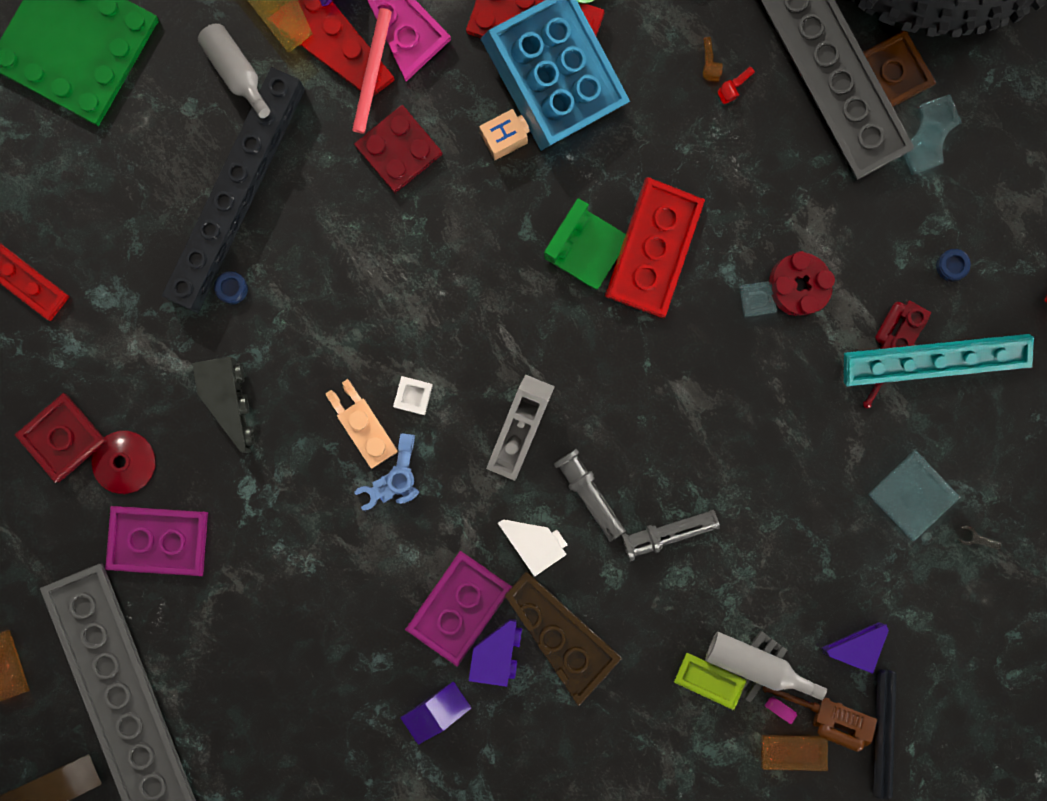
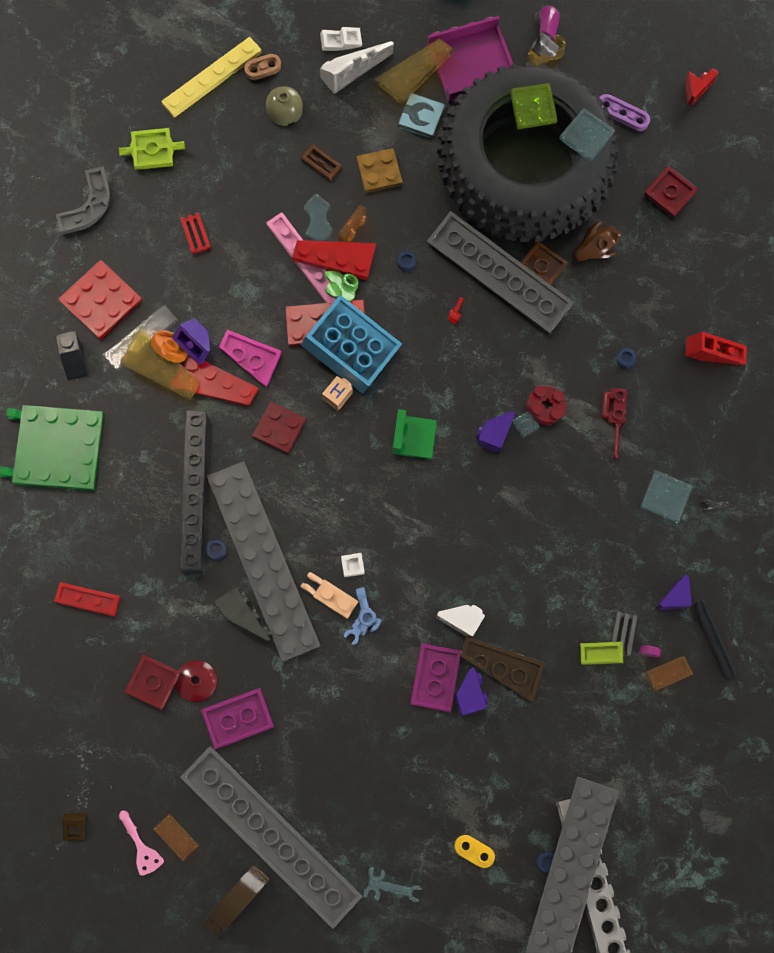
camera: 30 degrees left, 10 degrees down
(232, 66) = (162, 420): light grey piece -> none
(290, 333) = (263, 561): none -> dark grey plate
(372, 70) = (245, 389): coral bar -> none
(436, 713) = (450, 746): dark purple slope -> none
(520, 427) = (424, 556): light grey slope -> none
(582, 483) = (474, 572): dark grey pin -> none
(655, 247) = (453, 420): red tile -> none
(655, 538) = (529, 587): dark grey pin -> none
(707, 291) = (495, 432): none -> dark purple slope
(712, 70) = (439, 308): clear orange hand -> none
(758, 666) = (625, 630): light grey piece -> none
(831, 715) = (683, 643): reddish brown piece -> none
(936, 120) = (578, 283): clear light blue tile -> none
(938, 360) = (642, 414): teal tile -> none
(994, 72) = (597, 243): none -> reddish brown animal

